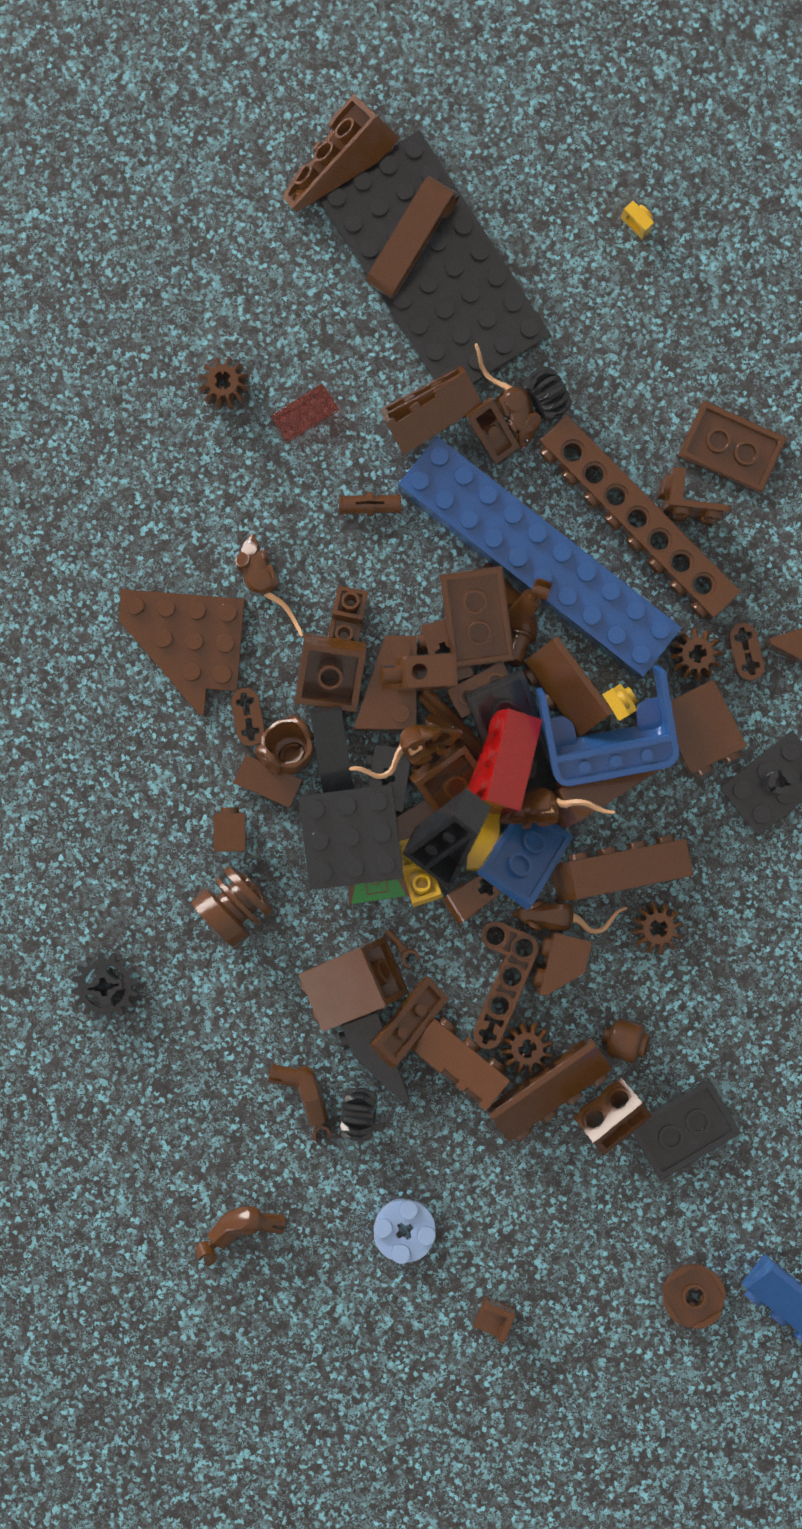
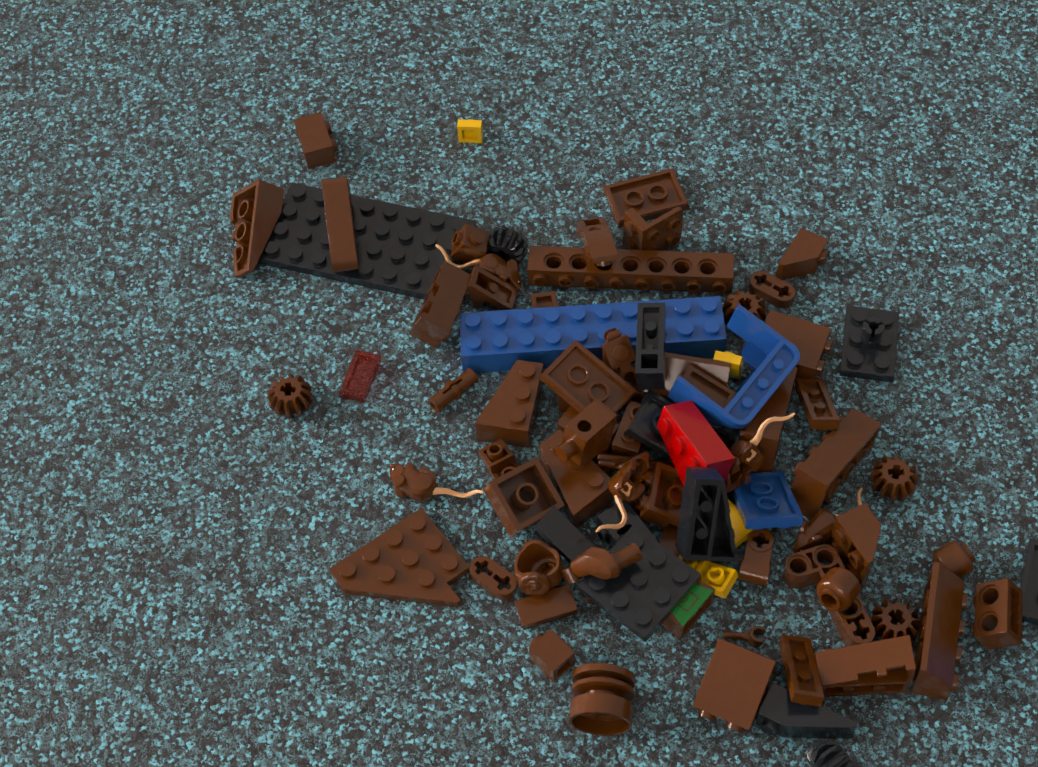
camera: 30 degrees left, 30 degrees down
(325, 801) = (601, 563): none -> reddish brown arm
(406, 571) = (513, 407): none -> reddish brown wedge
(481, 96) = (315, 140): none -> reddish brown brick
(499, 989) = (838, 589): none -> reddish brown head
(513, 363) = (469, 243): none -> reddish brown brick
(528, 486) = (544, 299): none -> reddish brown plate
(529, 615) = (619, 355): none -> reddish brown plate
(555, 638) = (651, 346): none -> black slope
(568, 717) = (710, 387): none -> reddish brown tile
(624, 471) = (597, 241): none -> reddish brown slope
(659, 806) = (817, 404): none -> reddish brown plate

